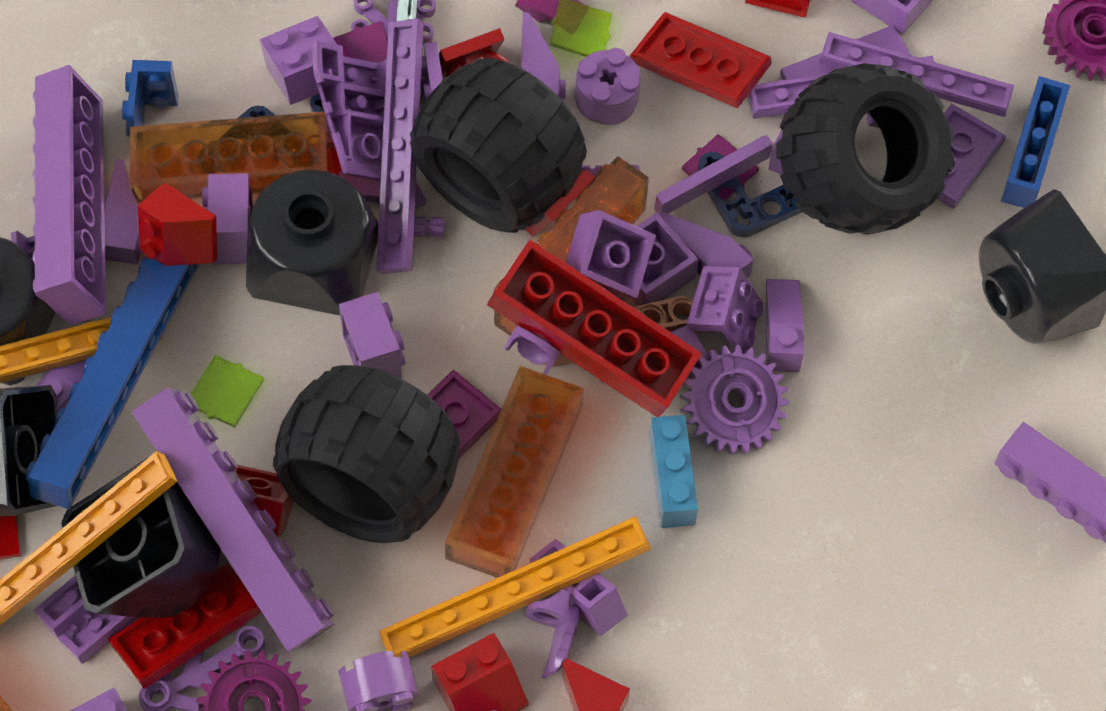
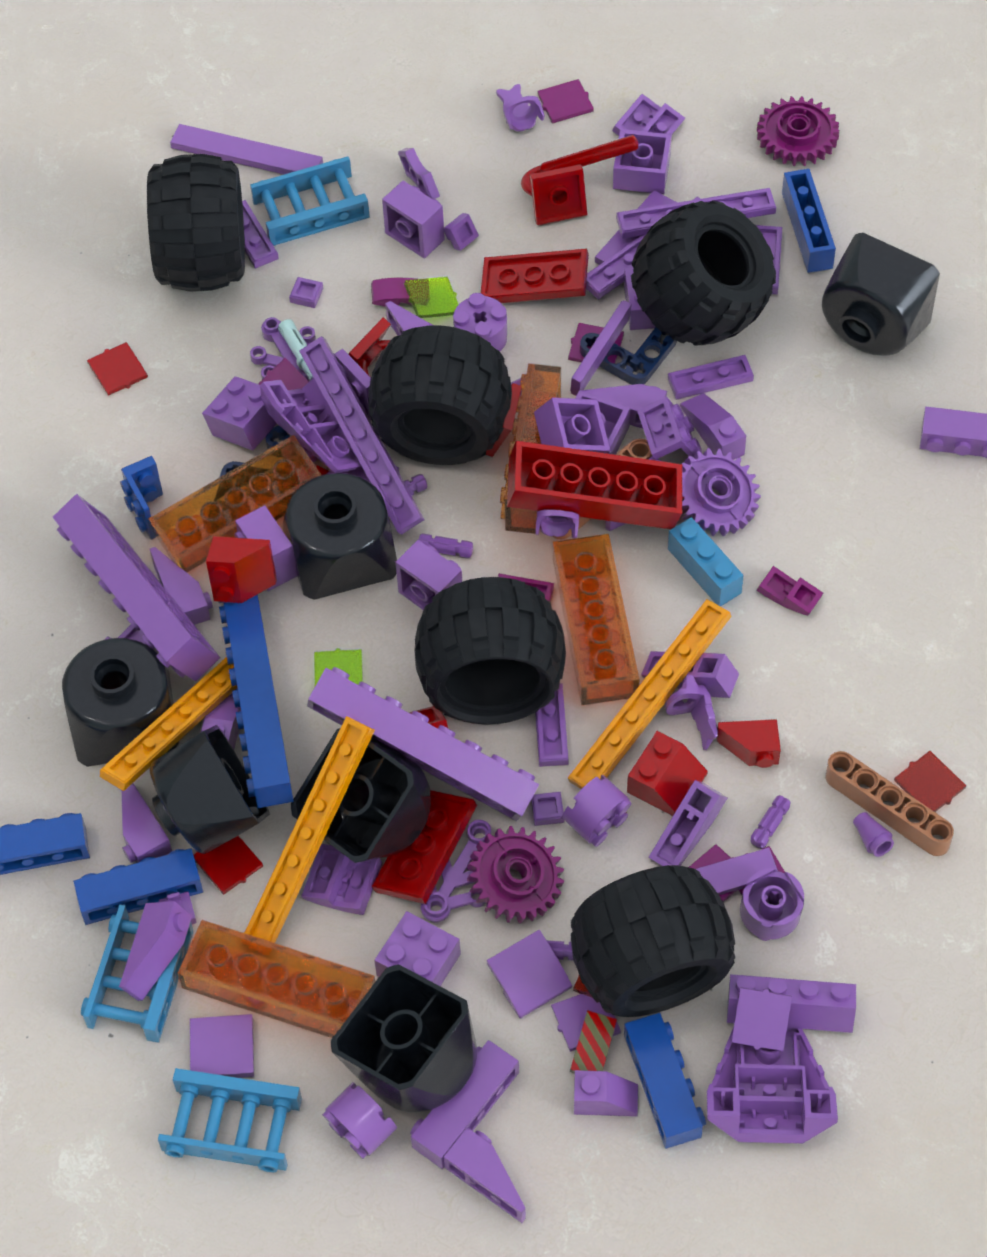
camera: 25 degrees left, 5 degrees down
(337, 651) = (547, 808): none -> medium lavender tile
(399, 569) = (552, 732): none -> medium lavender tile
(419, 309) = (448, 545): none -> medium lavender axle
(744, 551) = (787, 592): none -> magenta slope
(818, 266) = (710, 377): none -> medium lavender tile

